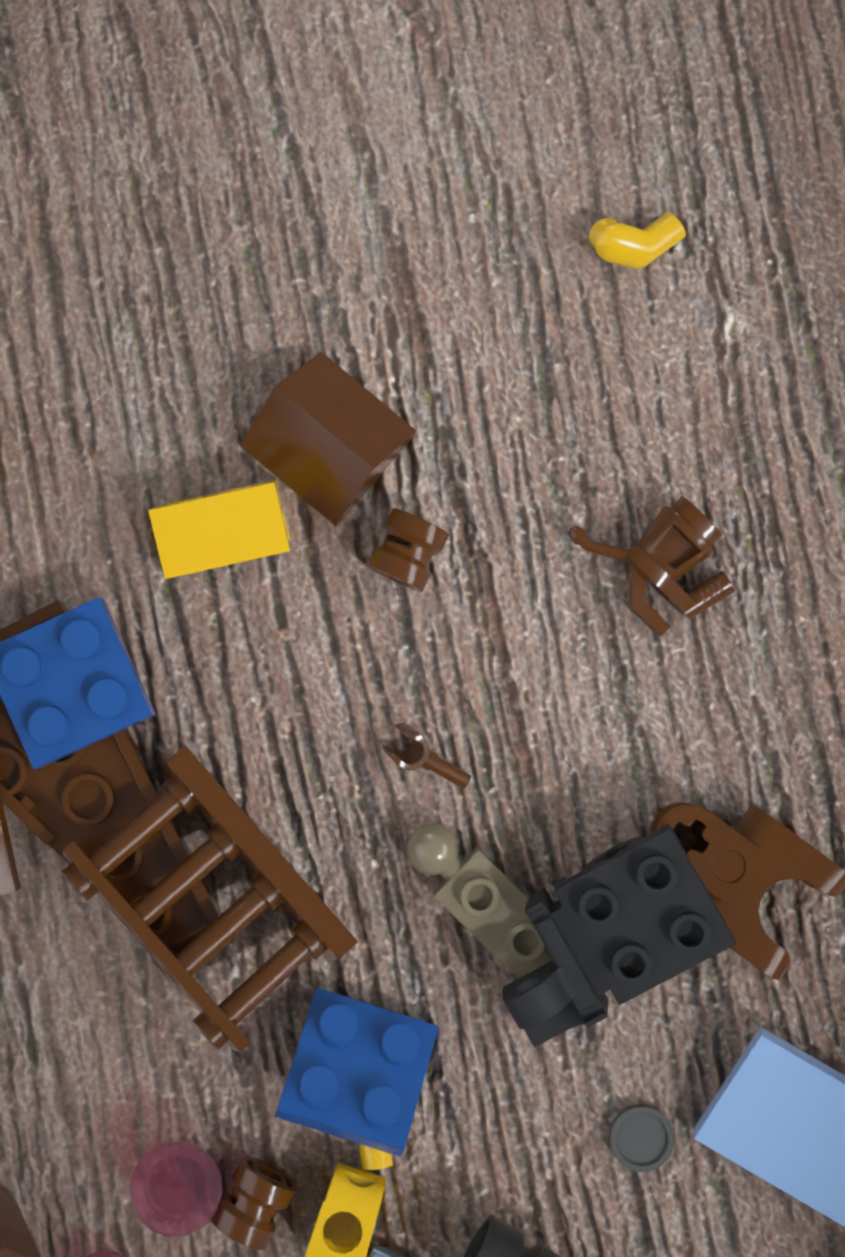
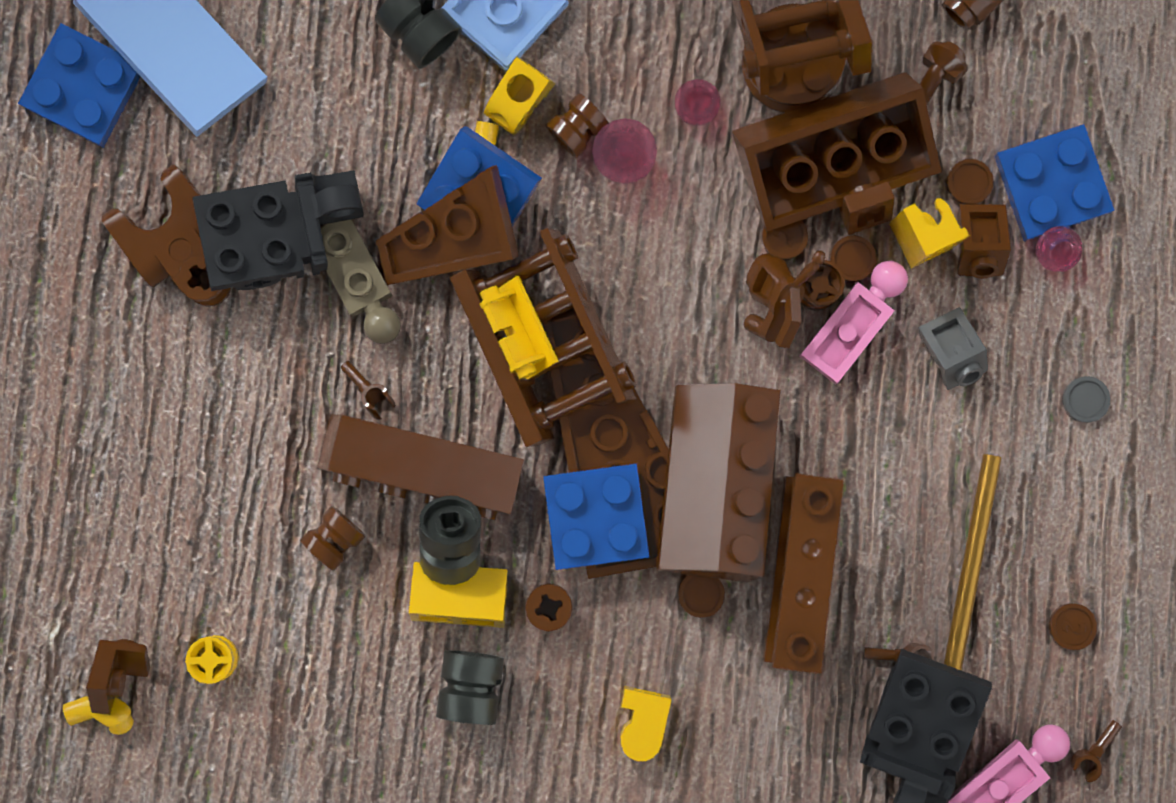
camera: 170 degrees left, 0 degrees up
(109, 558) = (554, 600): none -> reddish brown wheel
(167, 403) = (470, 687): none -> pearl dark grey wheel
(242, 912) = (526, 342): none -> yellow hinge
(245, 592) = (450, 540): none -> pearl dark grey wheel
(324, 678) = (418, 463): none -> reddish brown wedge
(326, 437) = (365, 637): reddish brown slope -> none
(371, 1001) = (452, 235): none -> reddish brown wing
(511, 336) = (202, 659): none -> yellow wheel
(638, 293) = (109, 671): none -> reddish brown bracket
(641, 1138) = (303, 87): dark grey piece -> none
(669, 549) = (149, 482): reddish brown piece -> none

